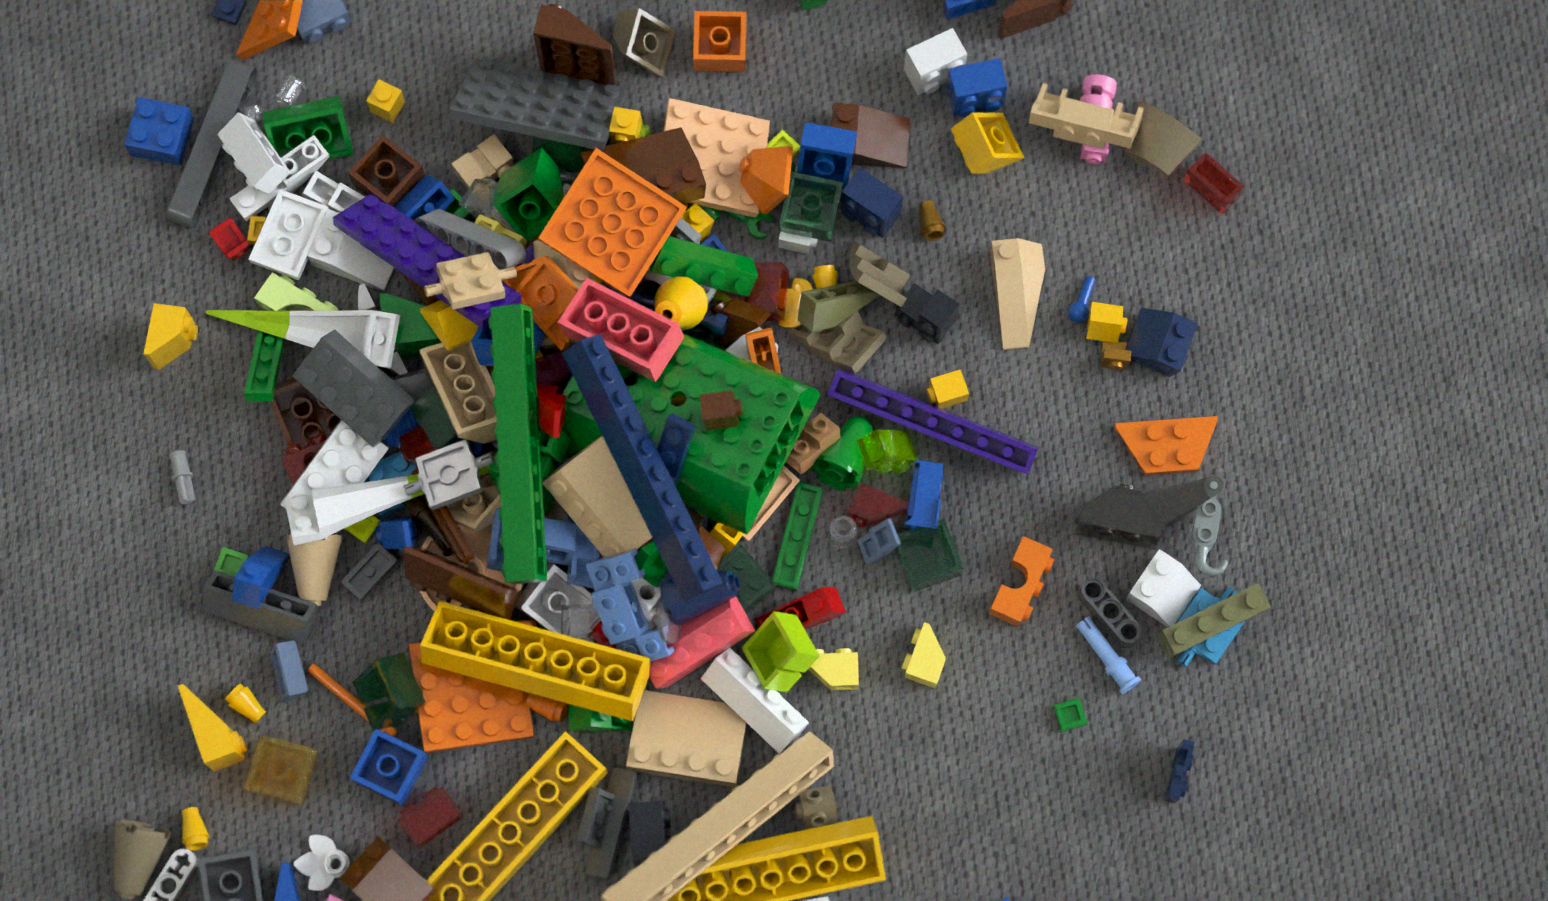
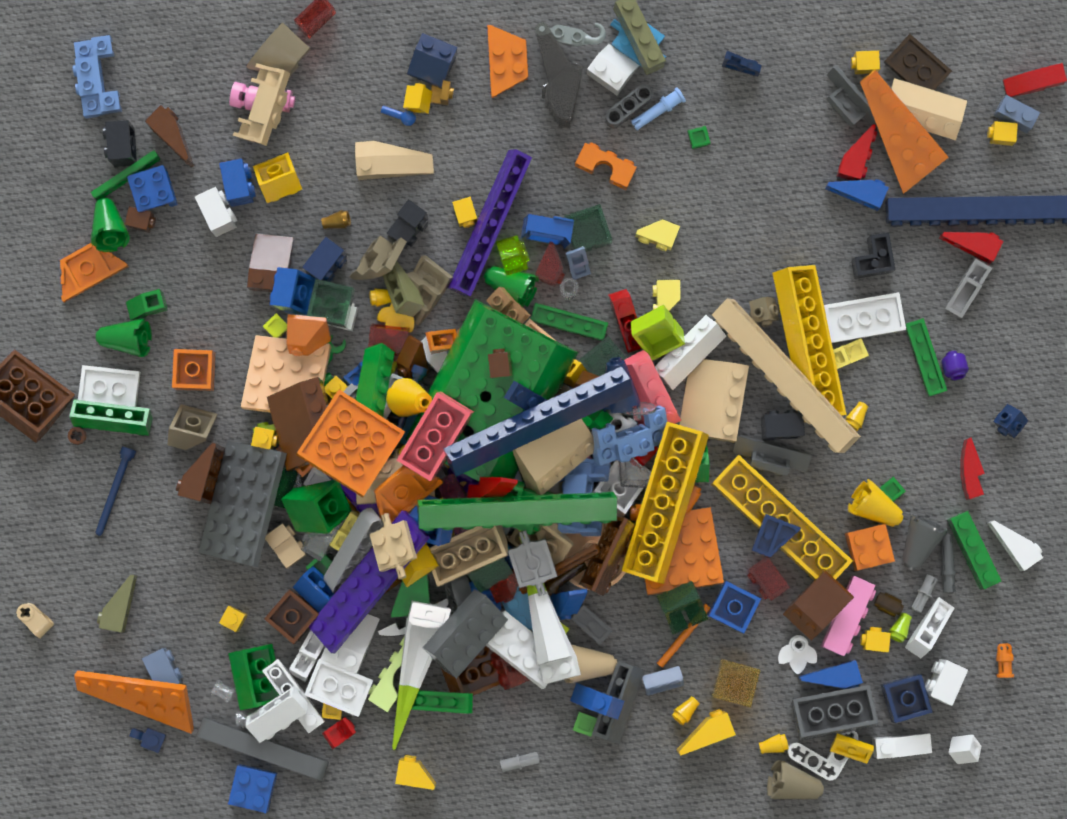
camera: 90 degrees left, 10 degrees up
(487, 815) = (773, 535): none -> dark blue wing

